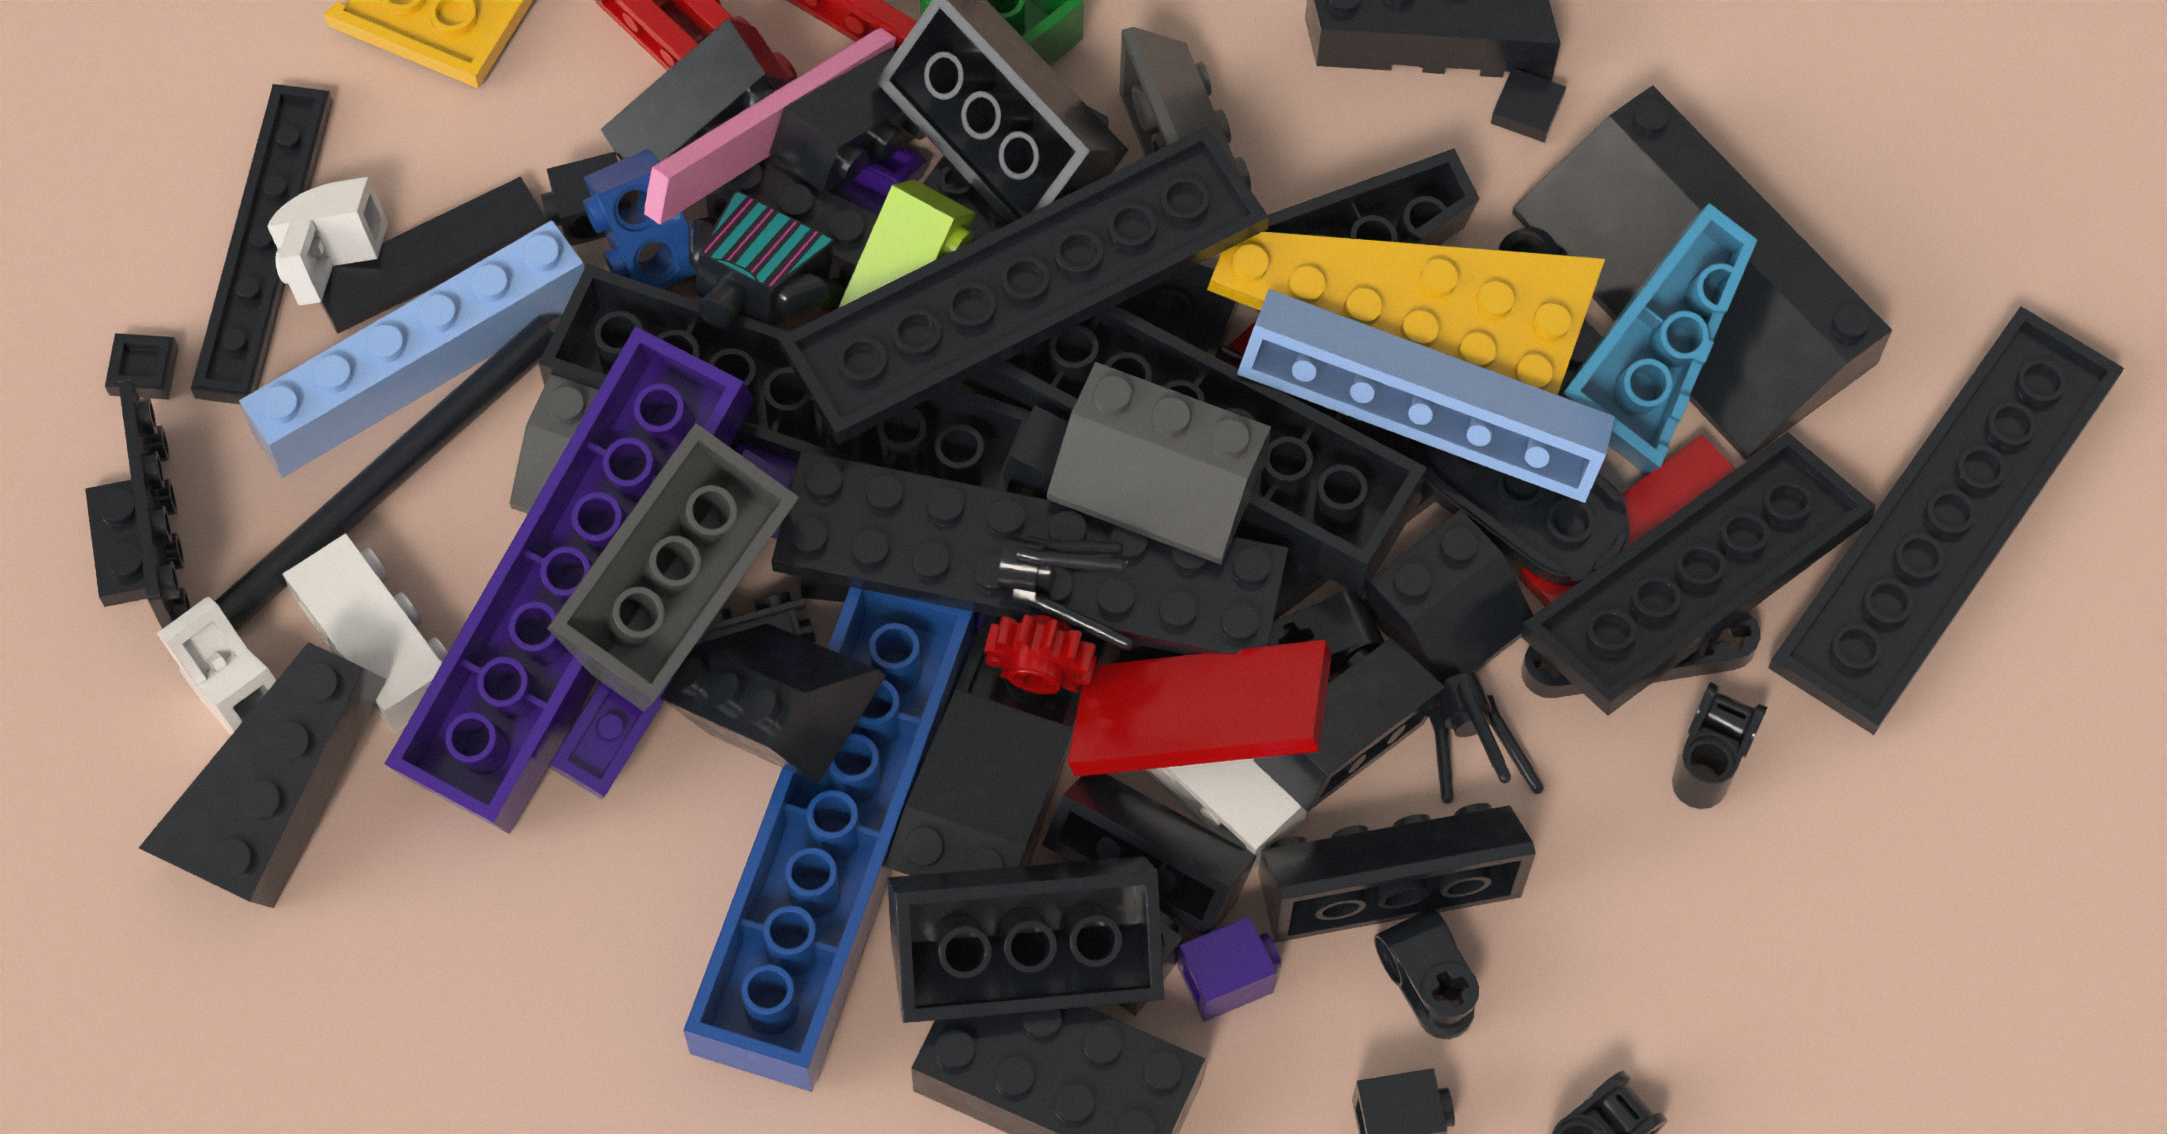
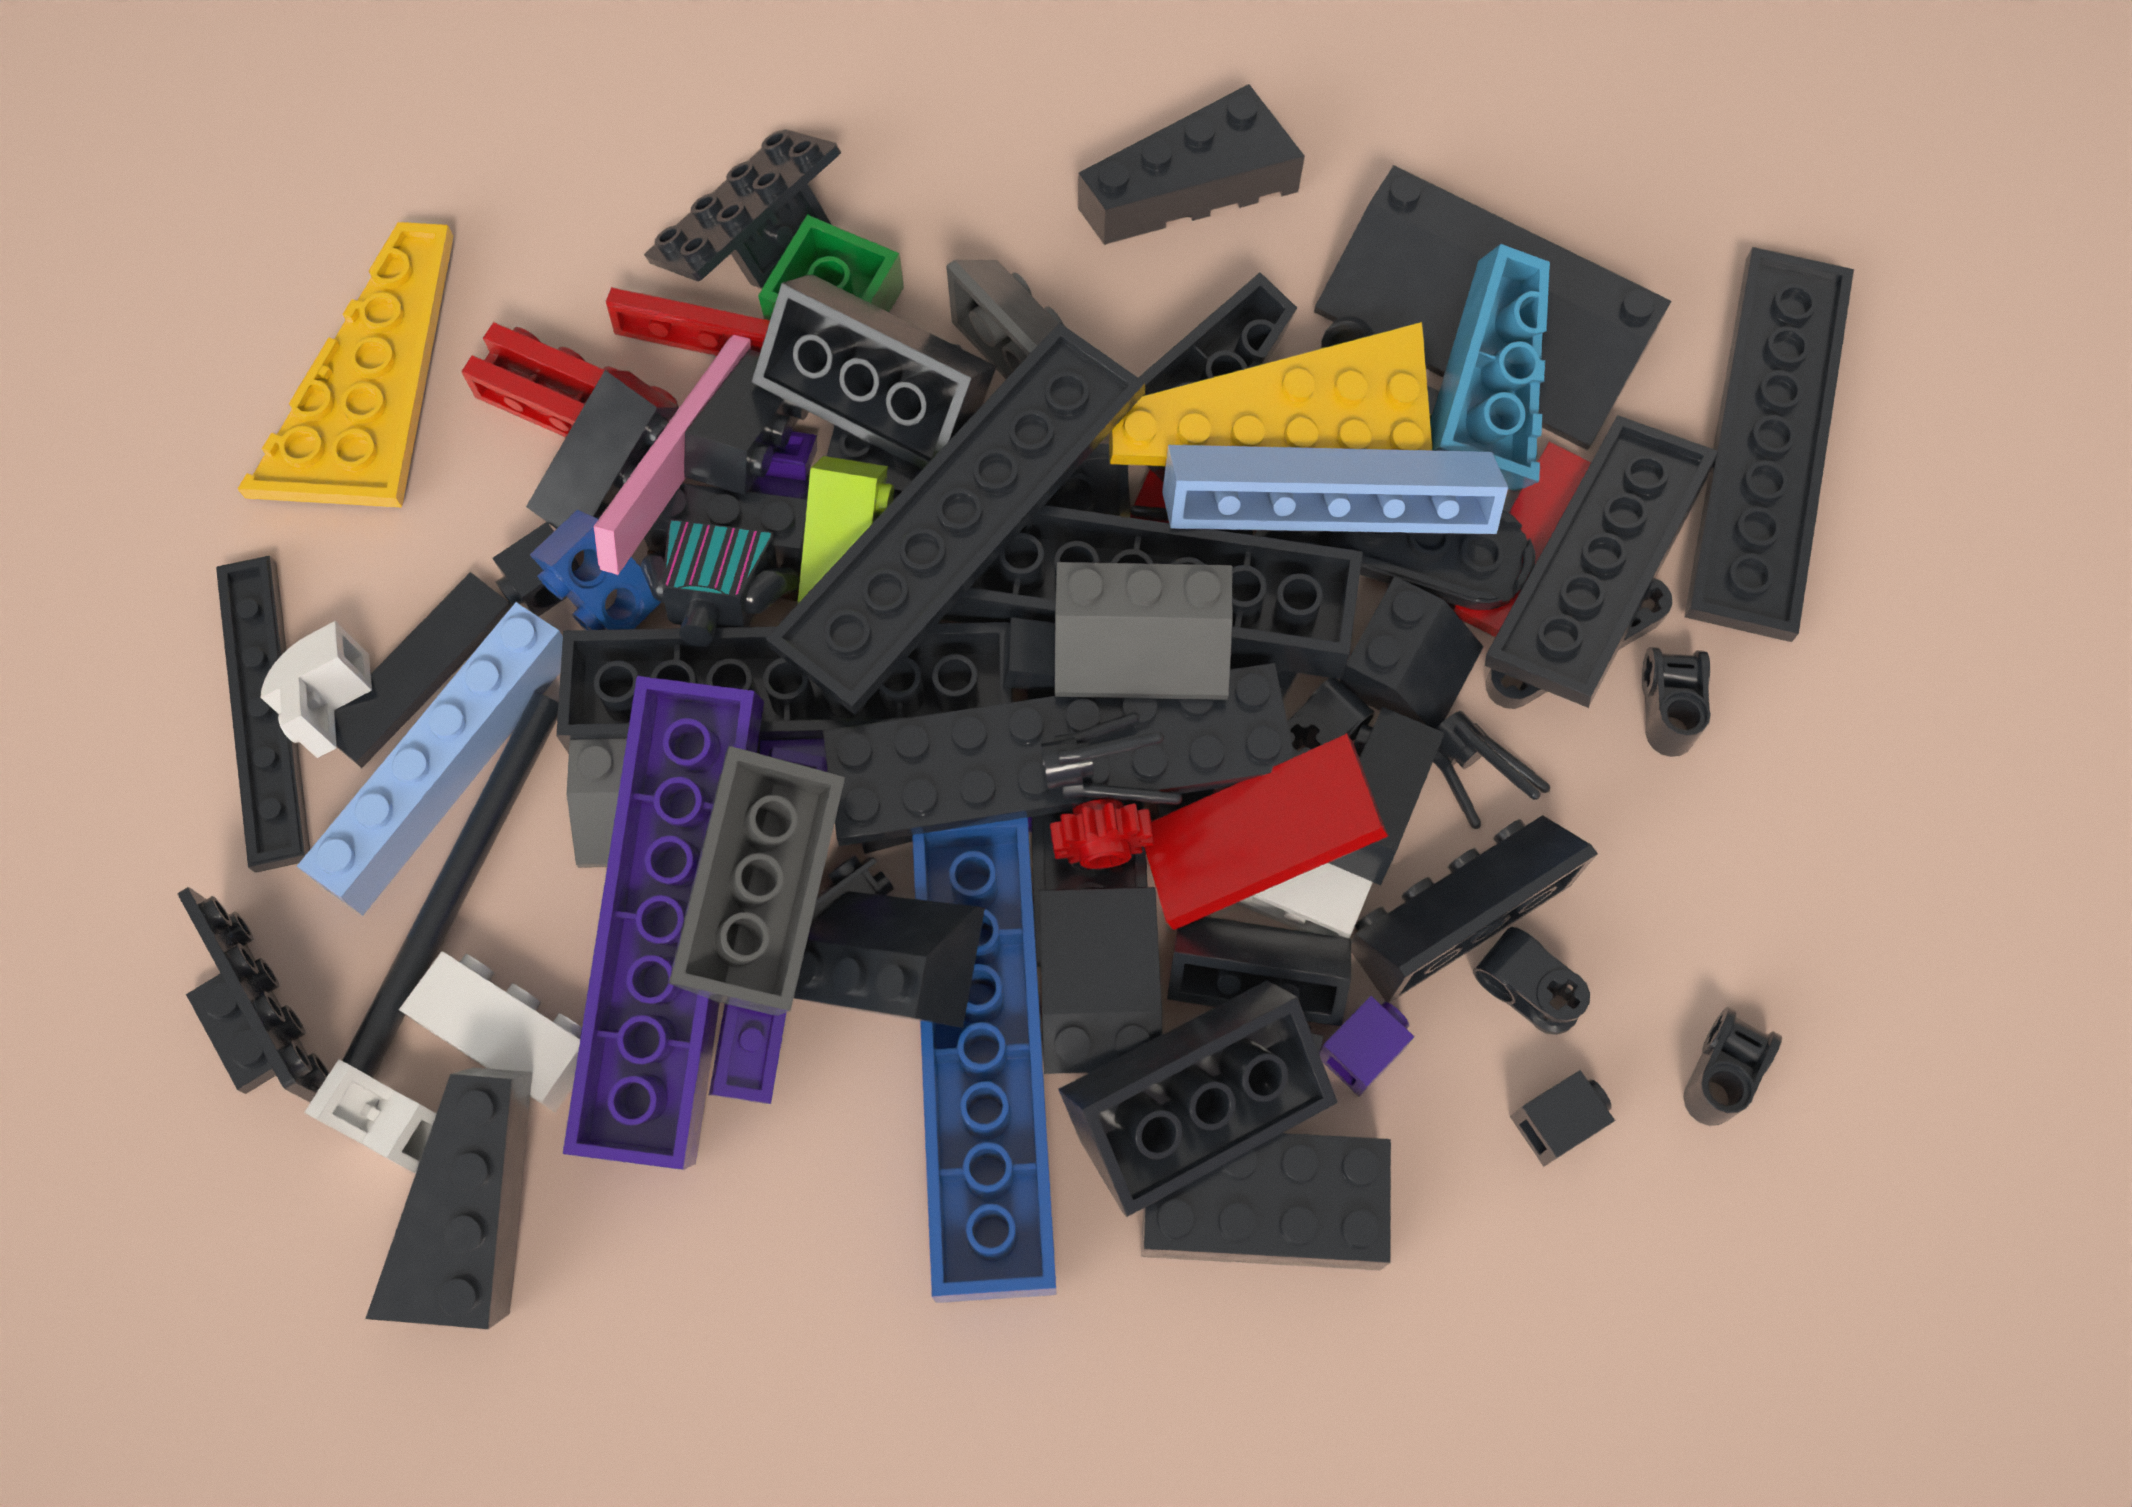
camera: 20 degrees left, 5 degrees up
(144, 360) = (195, 861): black tile -> none
(1528, 105) = (1290, 218): black tile -> none

